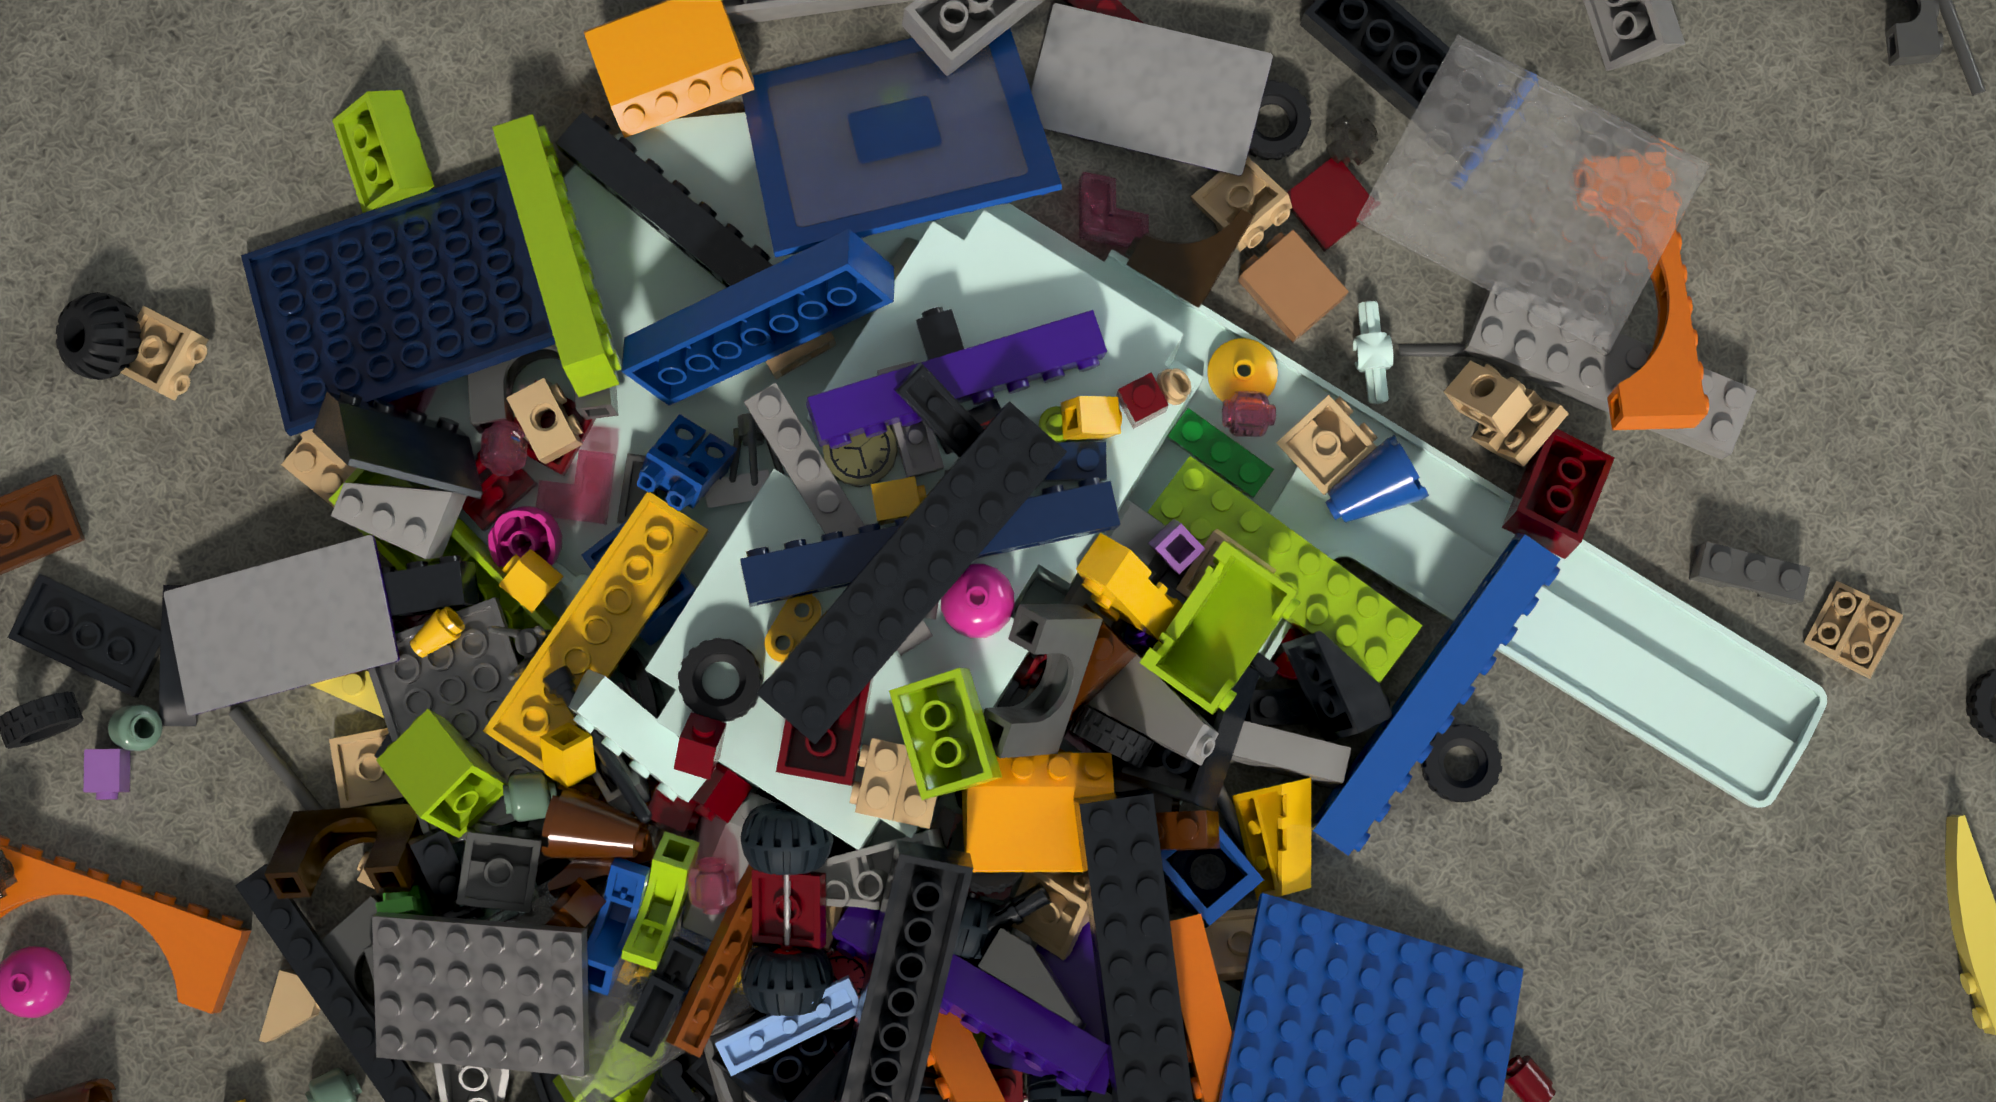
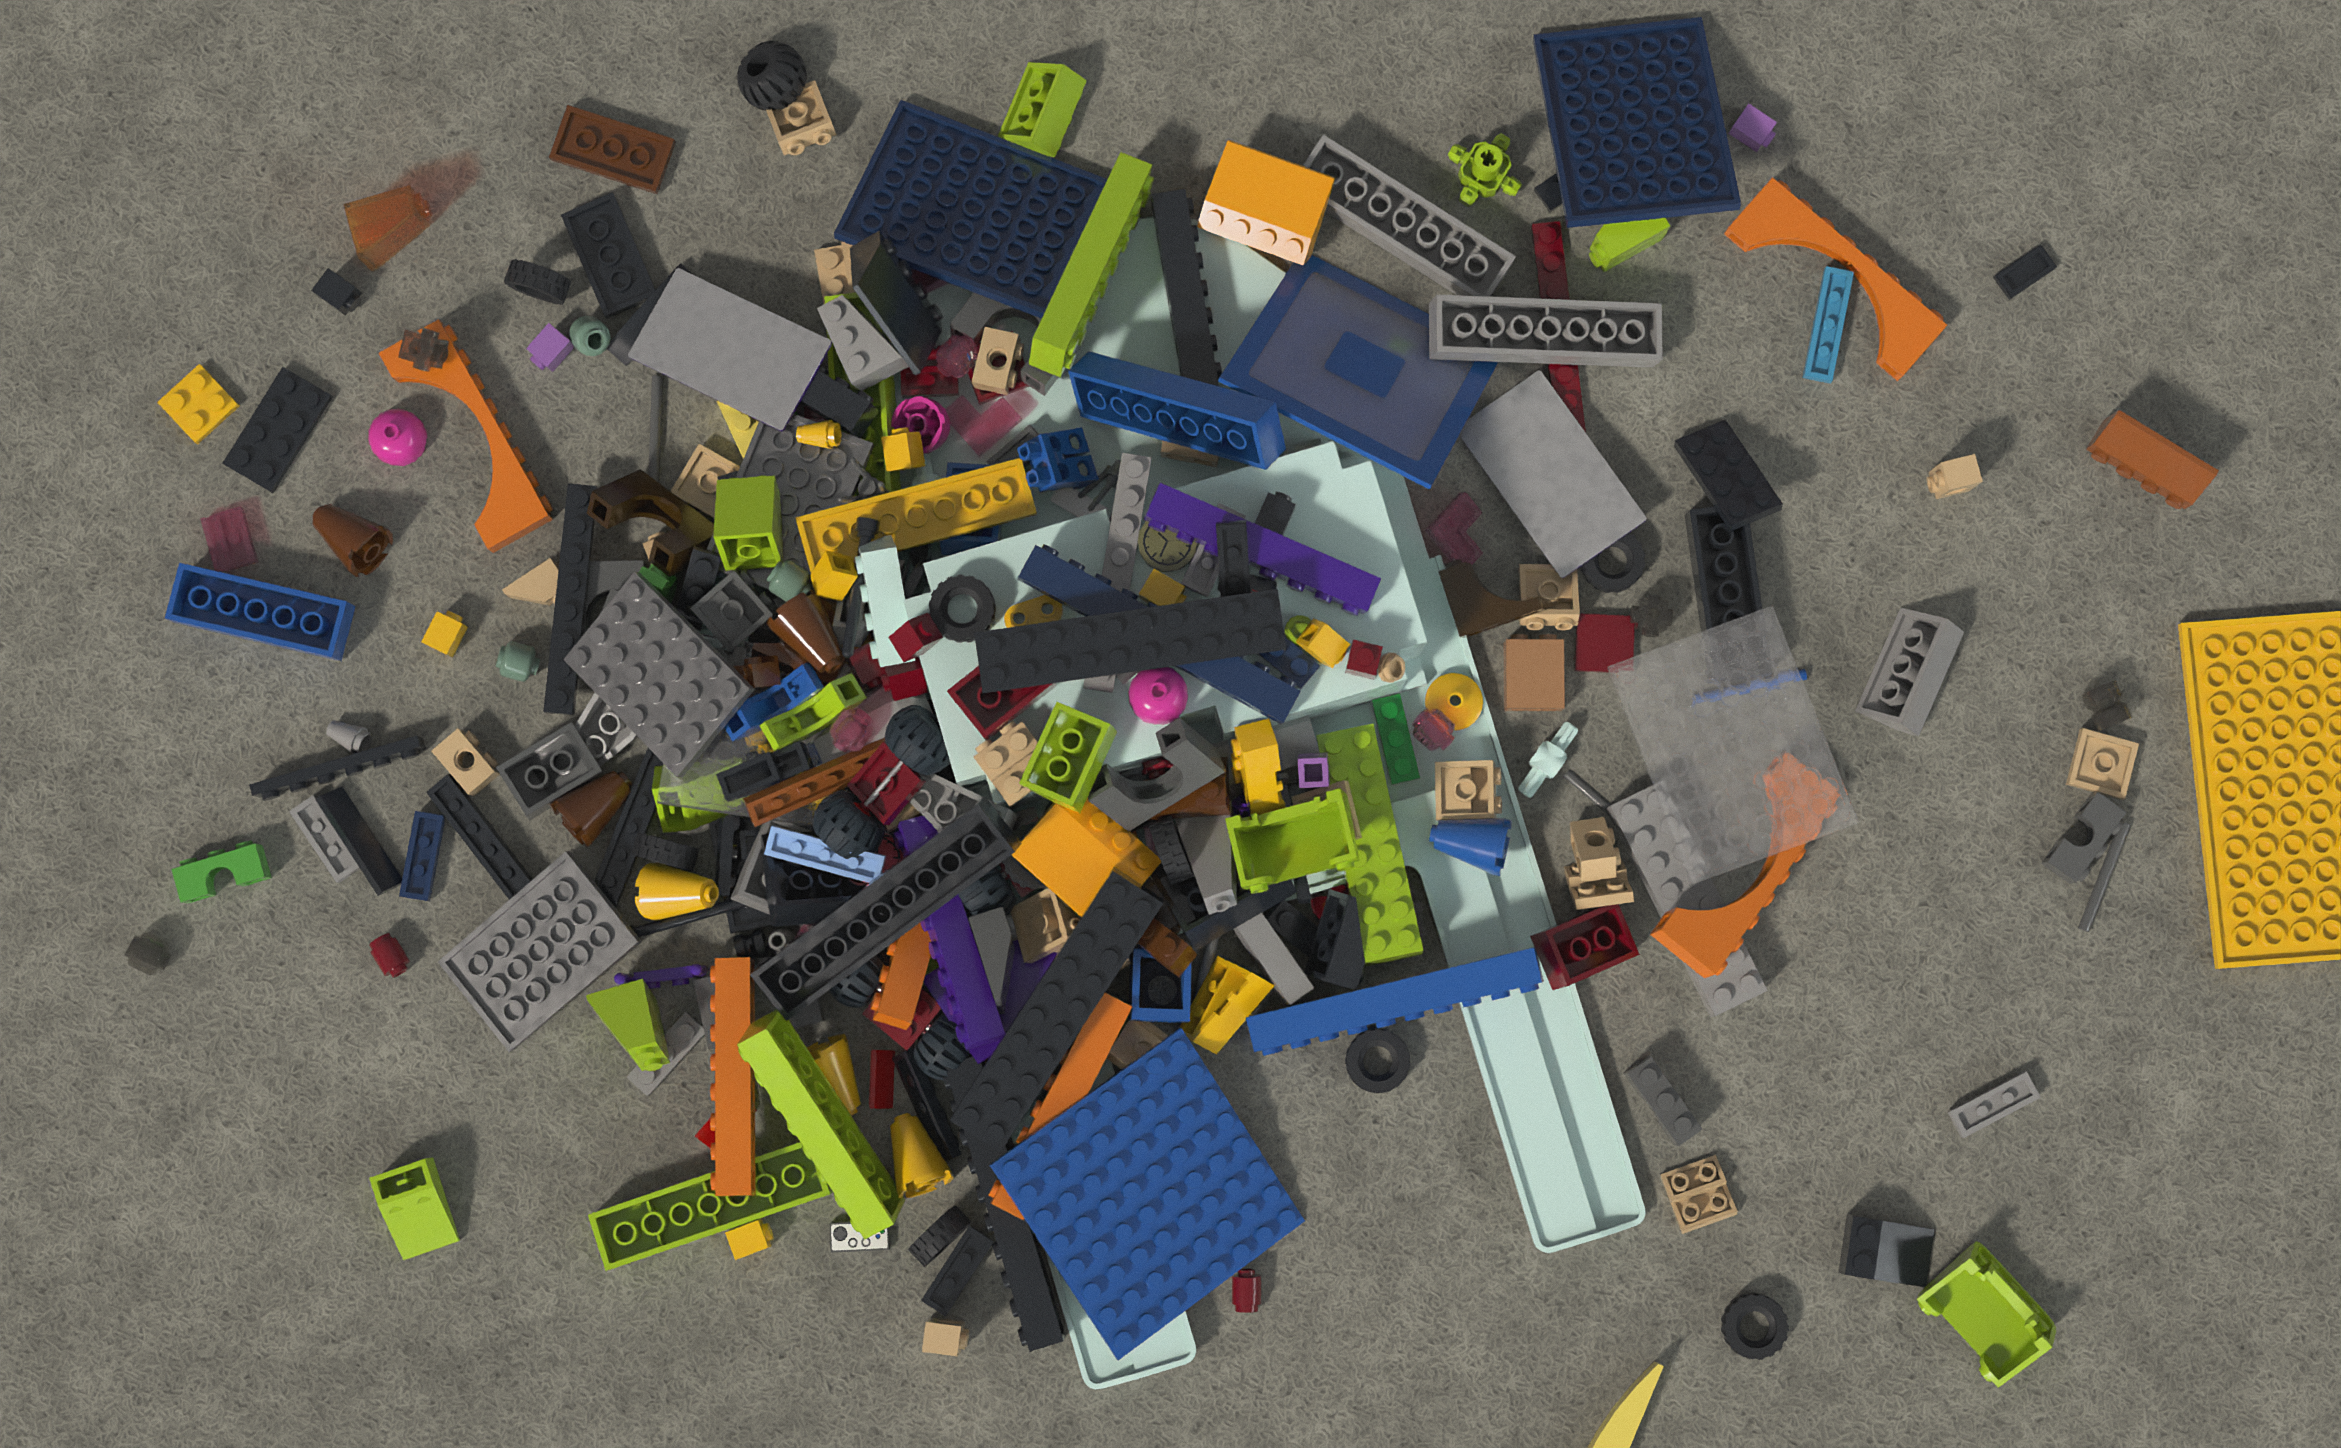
camera: 45 degrees right, 0 degrees up
(1017, 908) = (1021, 905): black pin -> none

